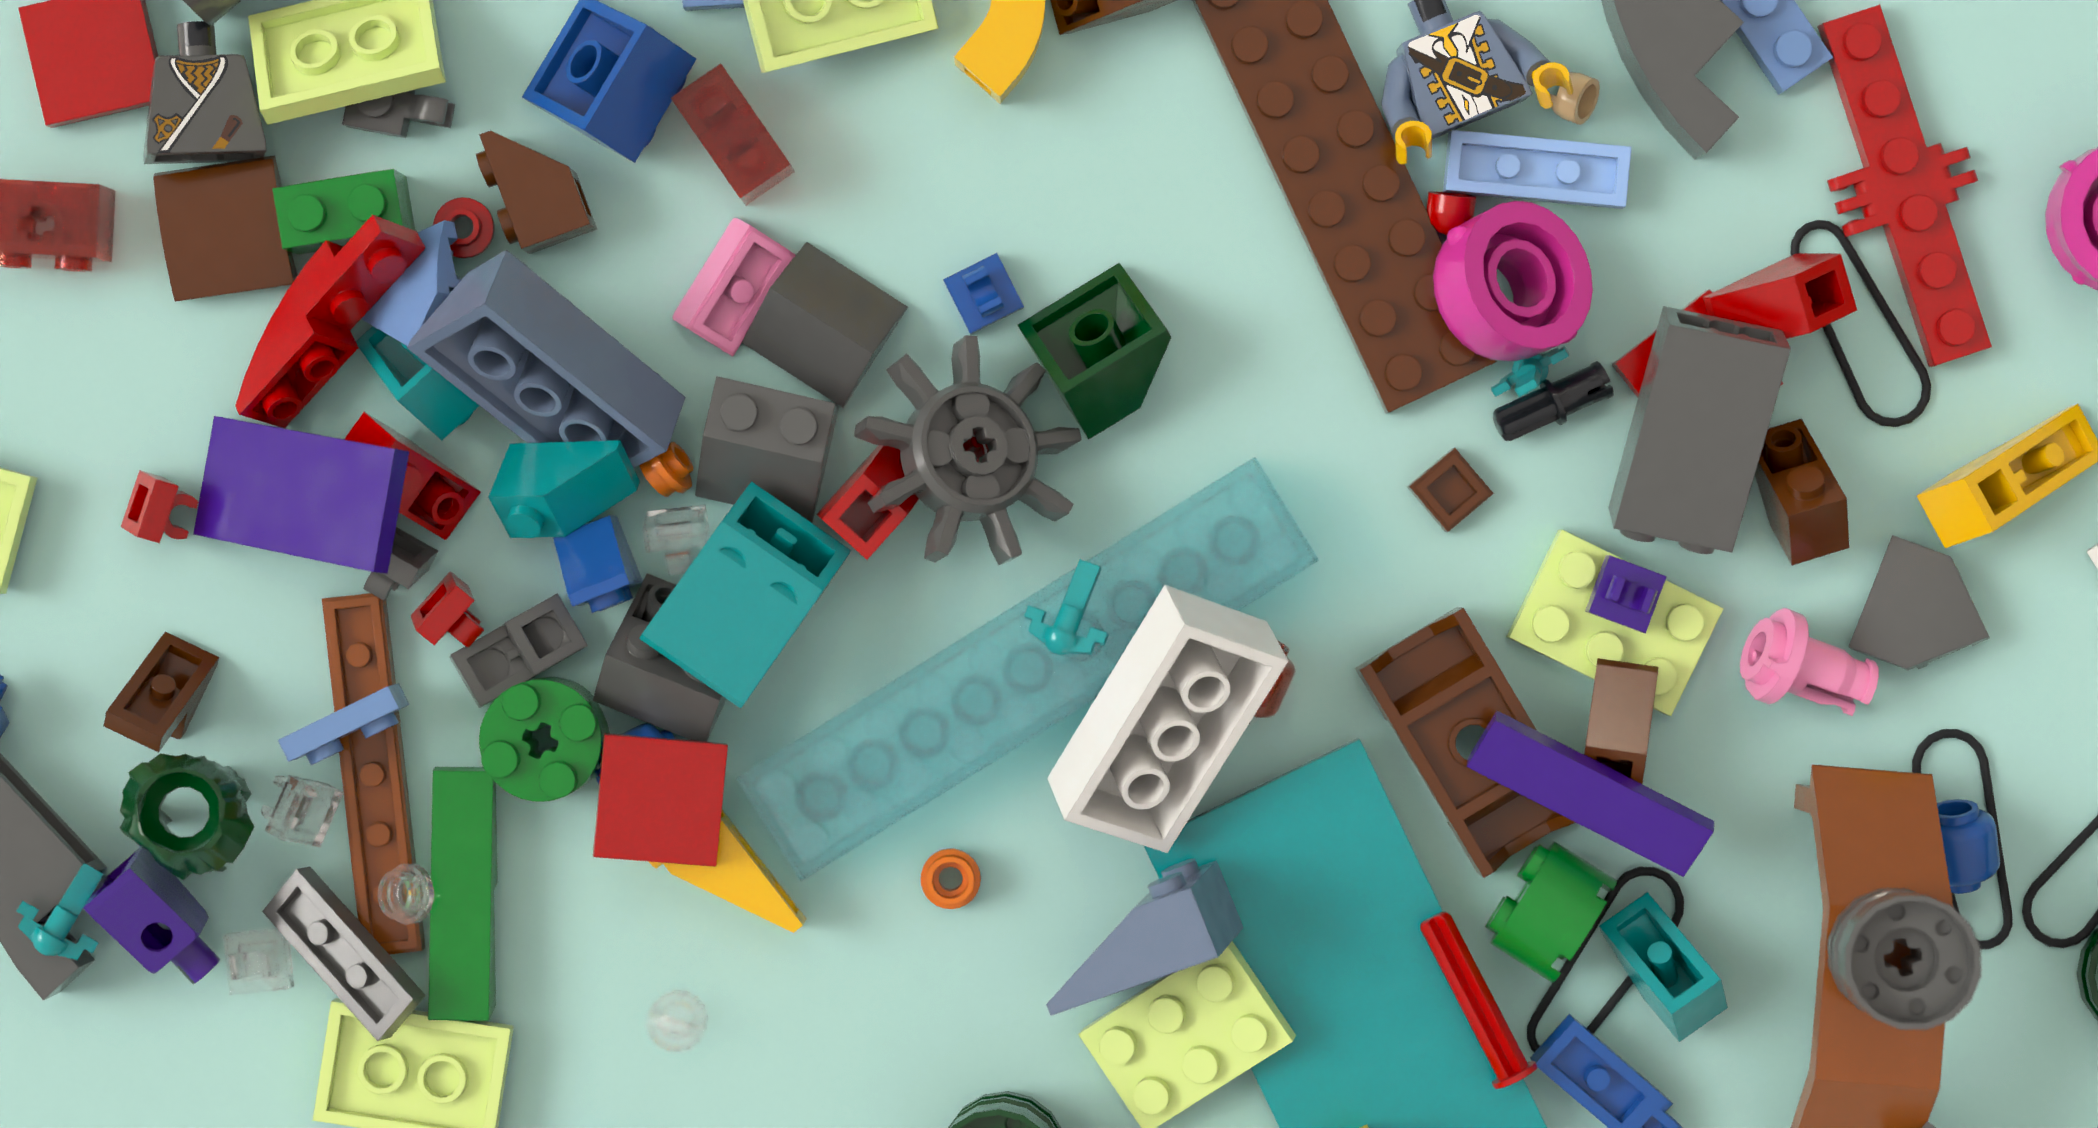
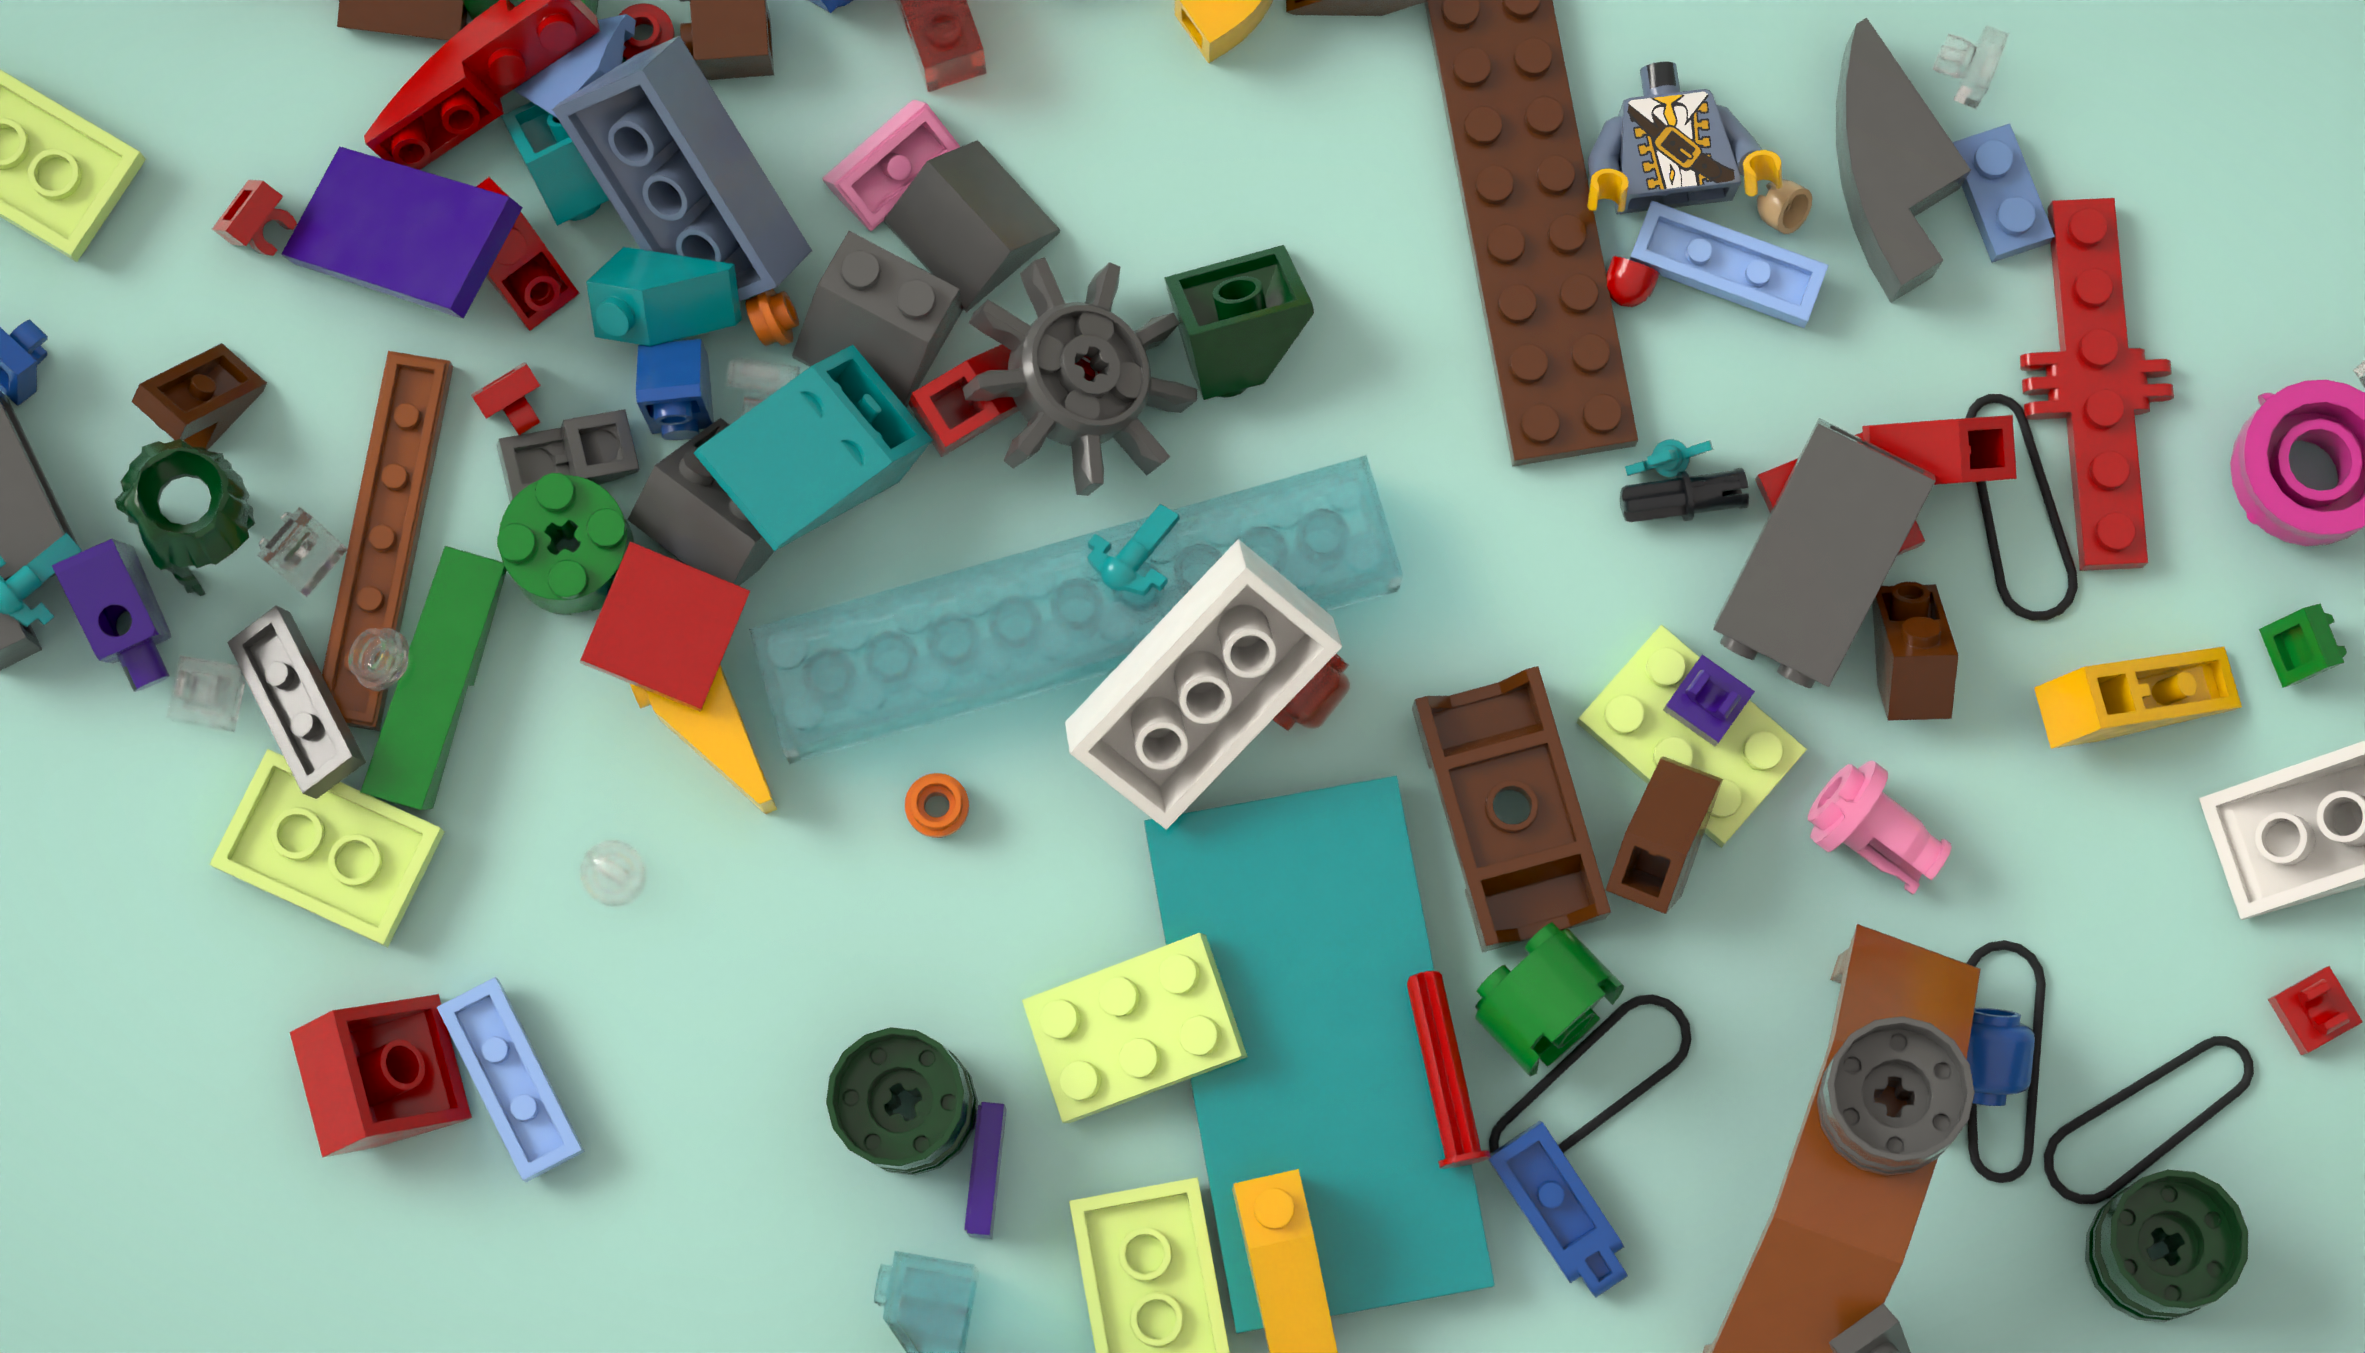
camera: 10 degrees right, 10 degrees down
(323, 736) = (346, 476): medium blue plate -> none
(408, 563) = (476, 335): dark grey tile -> none
(983, 293) = (1139, 236): blue tile -> none
(1174, 927) = (1127, 897): sand blue slope -> none
(1450, 490) = (1557, 557): reddish brown tile -> none
(1544, 272) = (1702, 342): dark pink piece -> none
(1590, 794) = (1619, 883): dark purple tile -> none
(1665, 967) = (1652, 1098): teal slope -> none
(1916, 609) = (2007, 805): dark grey slope -> none

